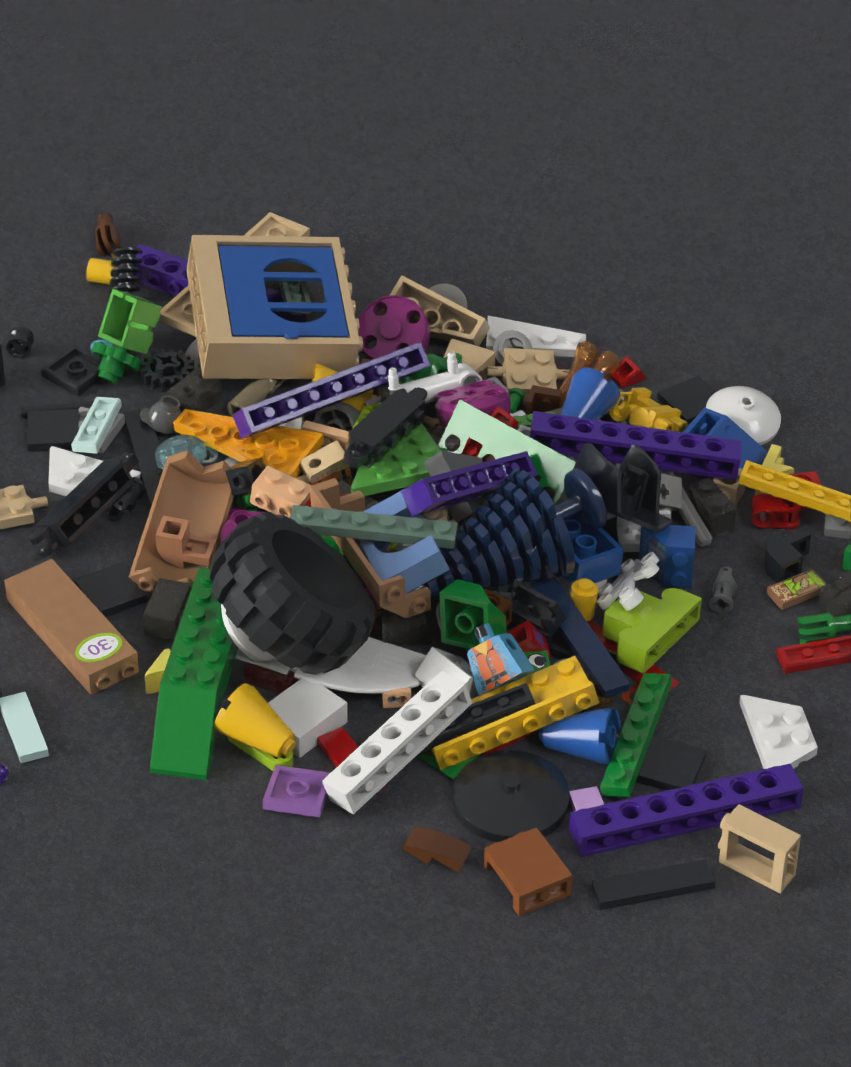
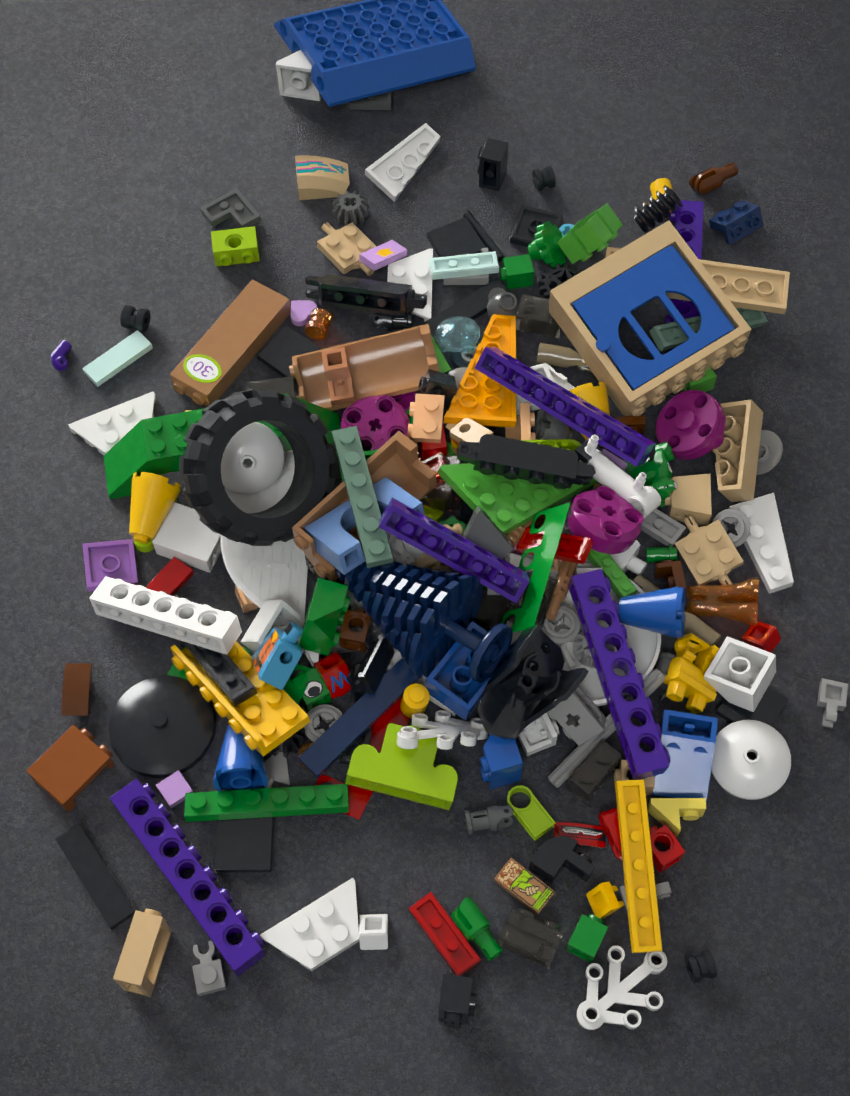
camera: 70 degrees right, 20 degrees up
(36, 481) = (383, 255): none -> lavender tile
(65, 561) = (301, 311): none -> lavender tile
(91, 552) = (318, 324): none -> clear orange wheel
(117, 746) = (111, 425): none -> white wing
(130, 391) = (517, 272): none -> green brick
(168, 235) = (737, 221): none -> dark blue bracket
(668, 380) = (741, 673): none -> white slope
(709, 349) = (833, 697): none -> light grey plate
(739, 560) = (534, 816): none -> lime piece
(757, 546) = (584, 833): none -> sticker
(792, 819) = (209, 973): none -> light grey plate
(799, 695) = (373, 932): none -> white slope
(833, 540) = (603, 900): none -> yellow tile

